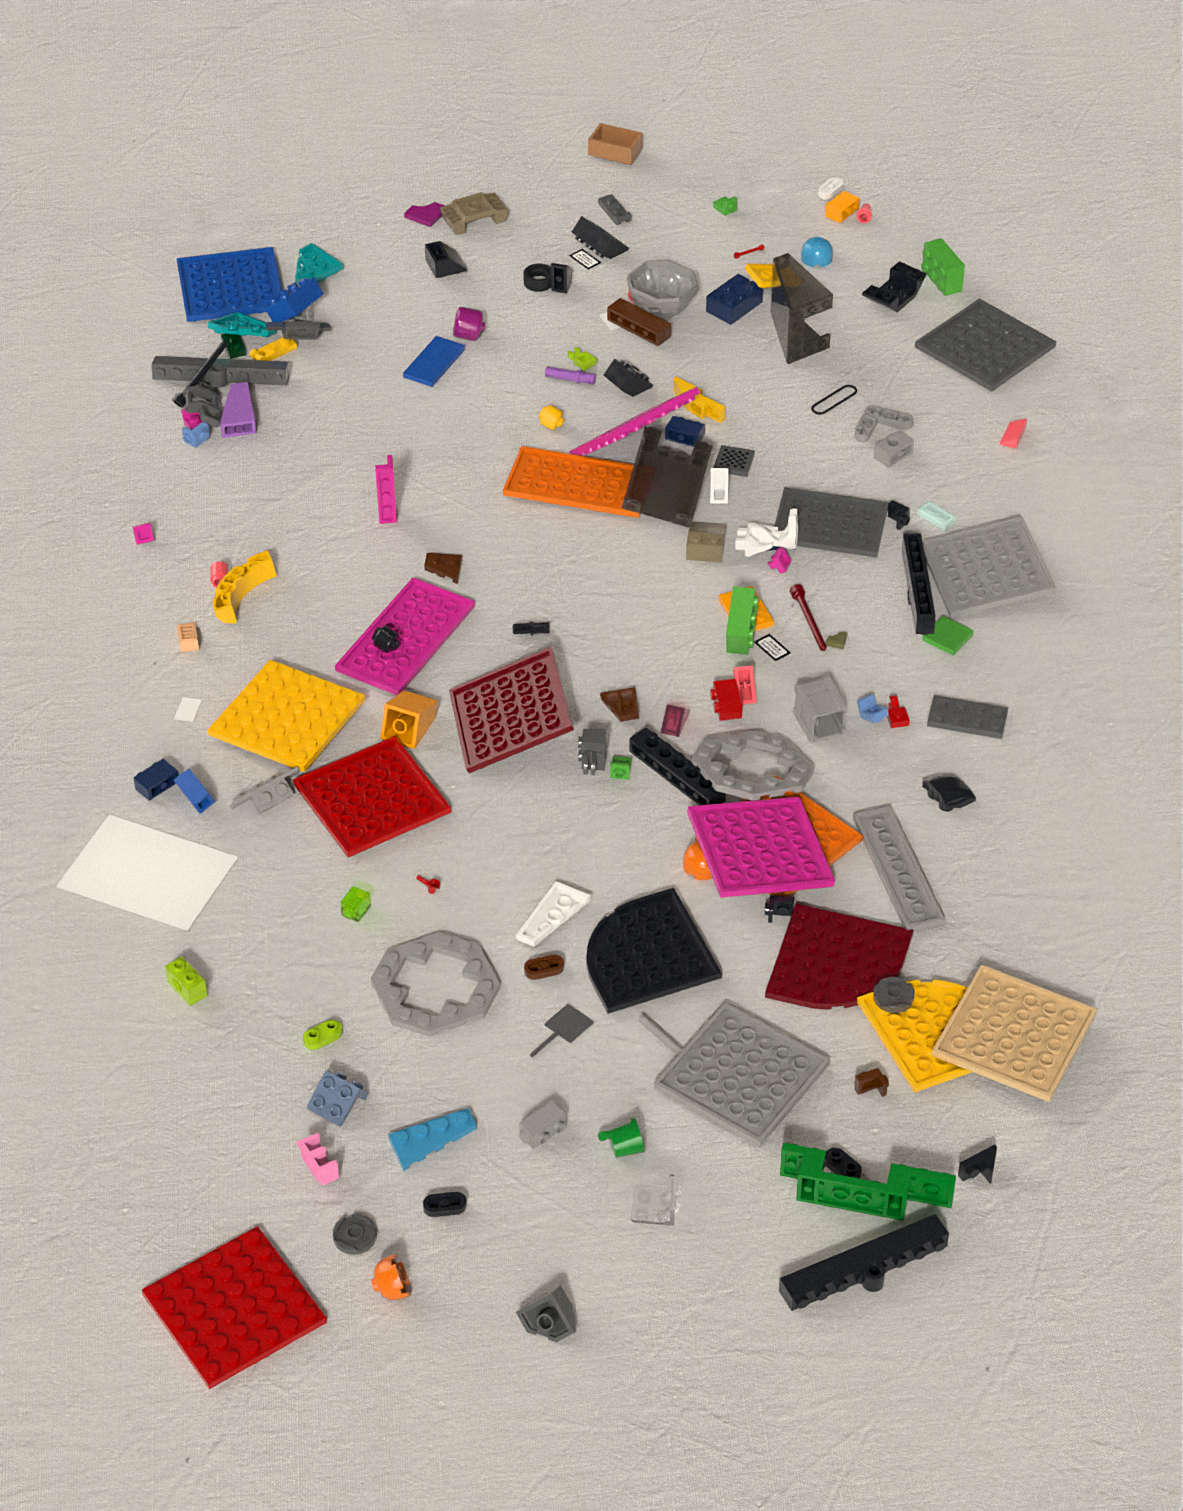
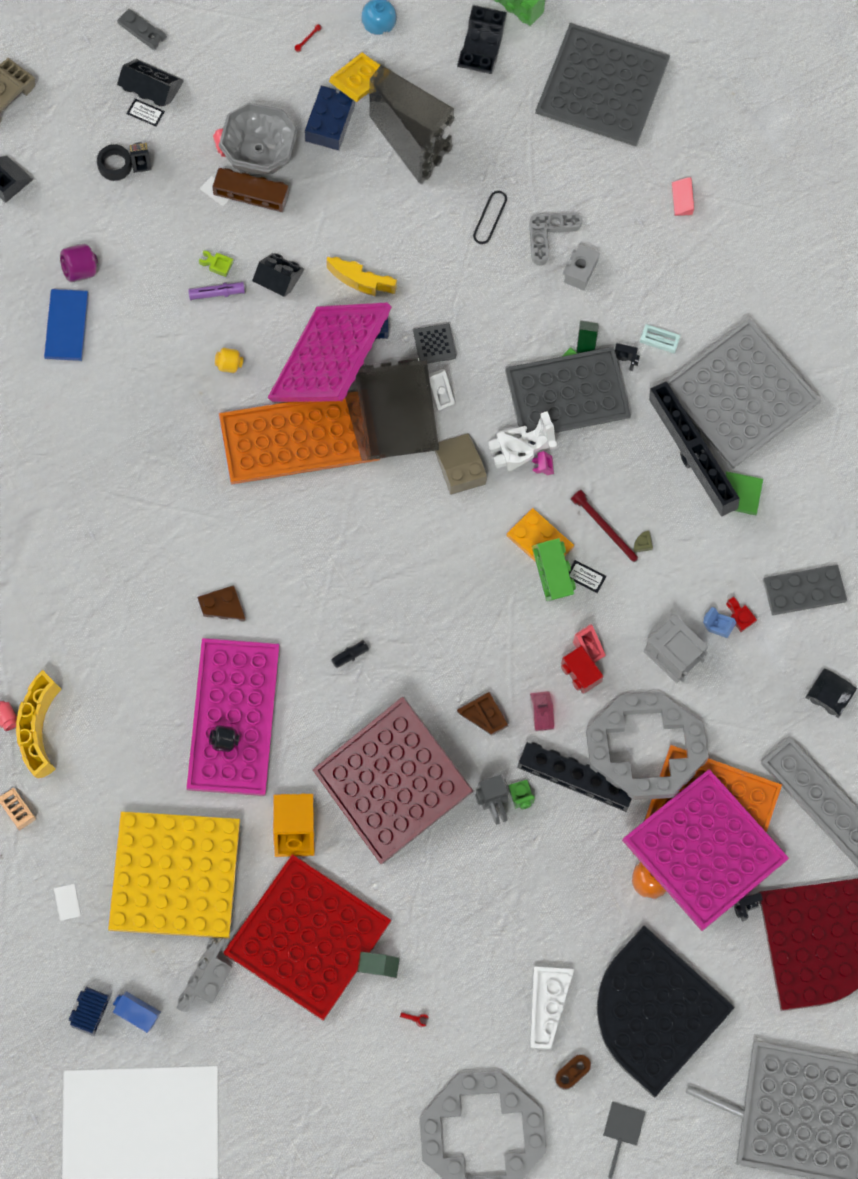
camera: 30 degrees left, 25 degrees up
(355, 904) = (363, 1079): clear neon green brick -> none
(386, 492) = (128, 548): dark pink fence -> none
(421, 832) = (378, 964): none -> dark green slope
(871, 491) = (587, 336): none -> dark green slope

